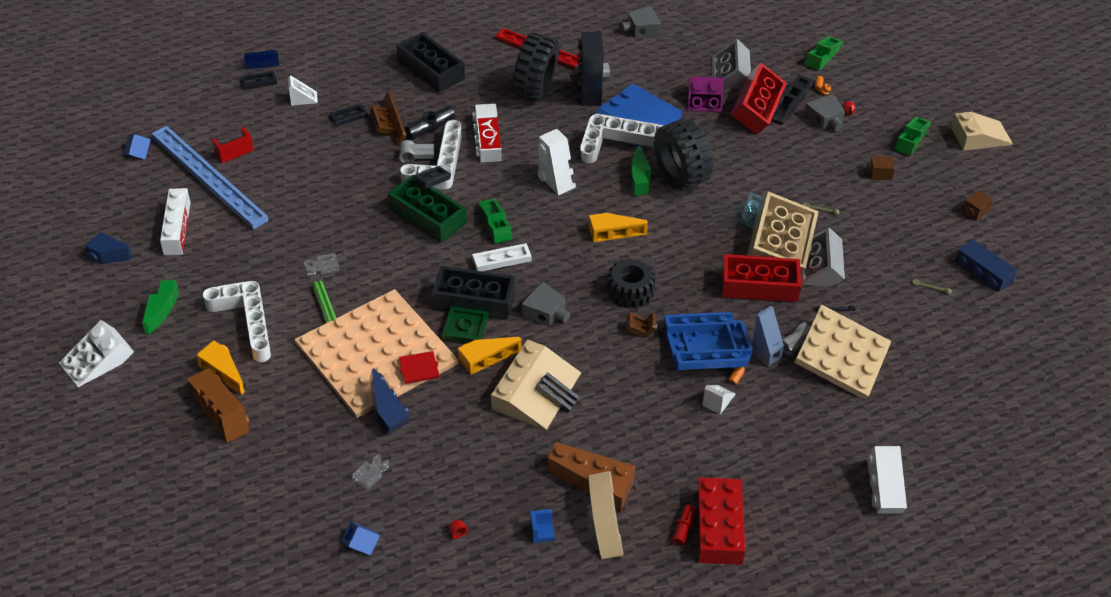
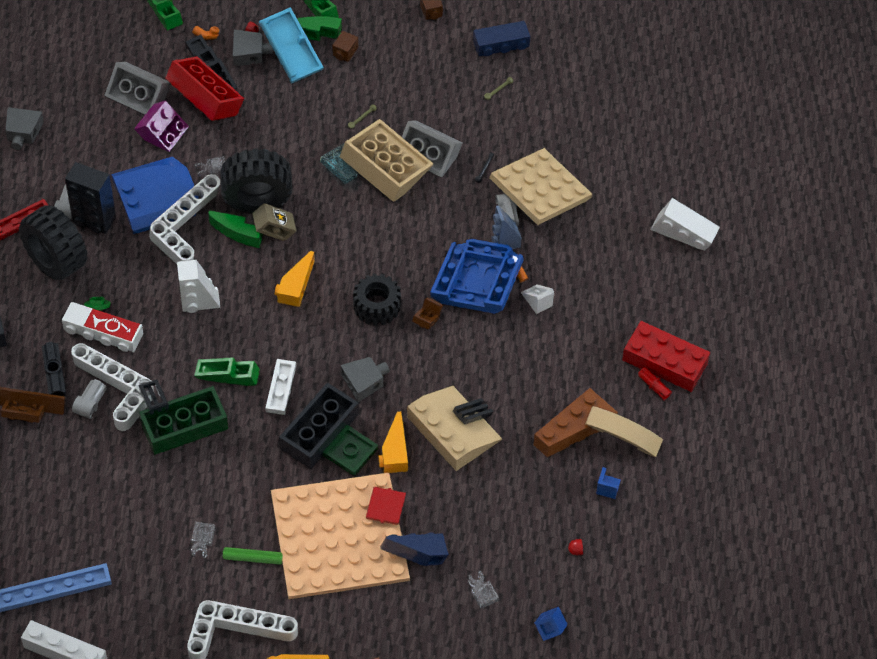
camera: 65 degrees left, 10 degrees up
(508, 122) = (97, 303): none -> green piece
(659, 187) = (274, 222): none -> dark tan brick
(761, 278) = (428, 201): red brick -> none
(848, 132) = (291, 45): none -> medium azure container
(884, 142) = (321, 26): none -> green slope

